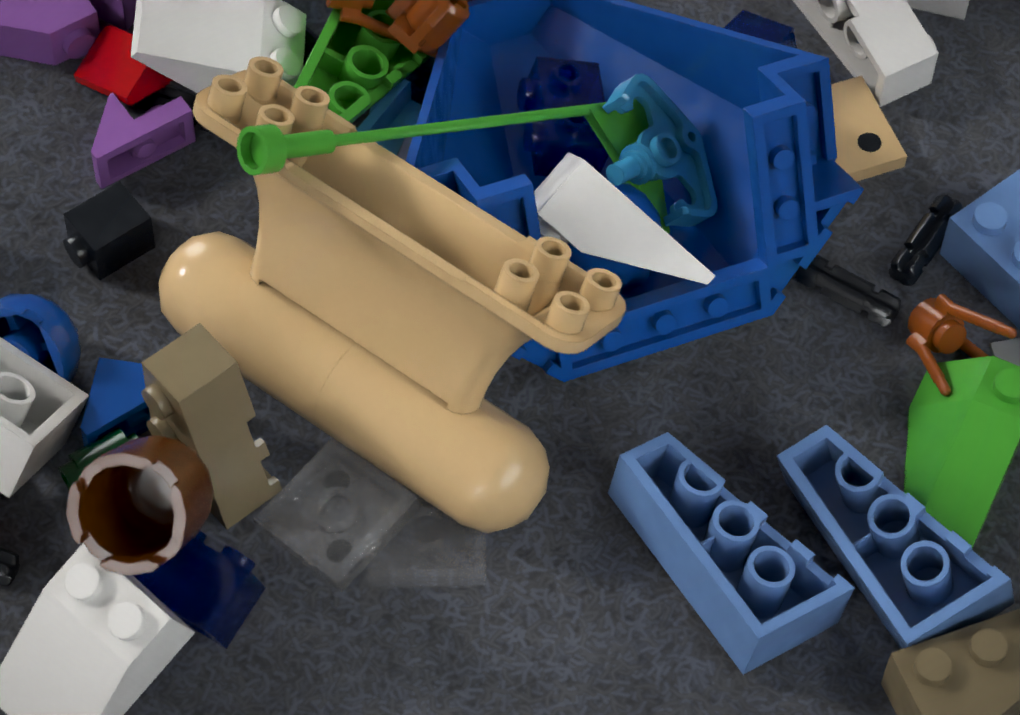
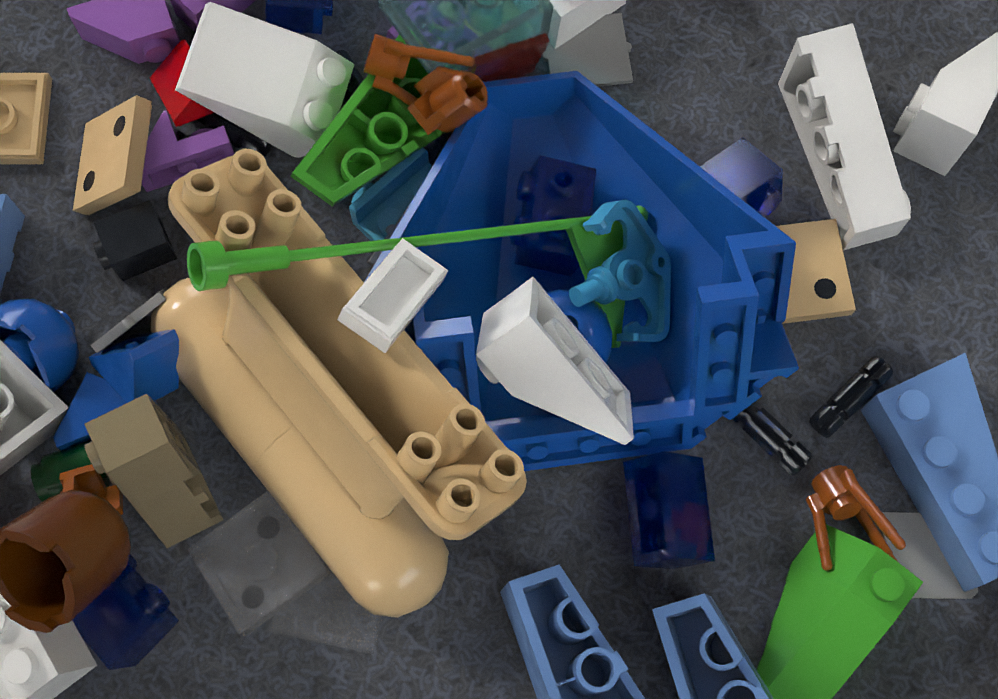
camera: 15 degrees right, 15 degrees up
(62, 149) = (113, 156): none -> tan tile
(133, 299) = (129, 321): none -> light grey piece
(157, 325) = (141, 365): none -> blue slope
(442, 165) = (392, 295): none -> white tile
(766, 373) = (668, 511): none -> clear blue brick

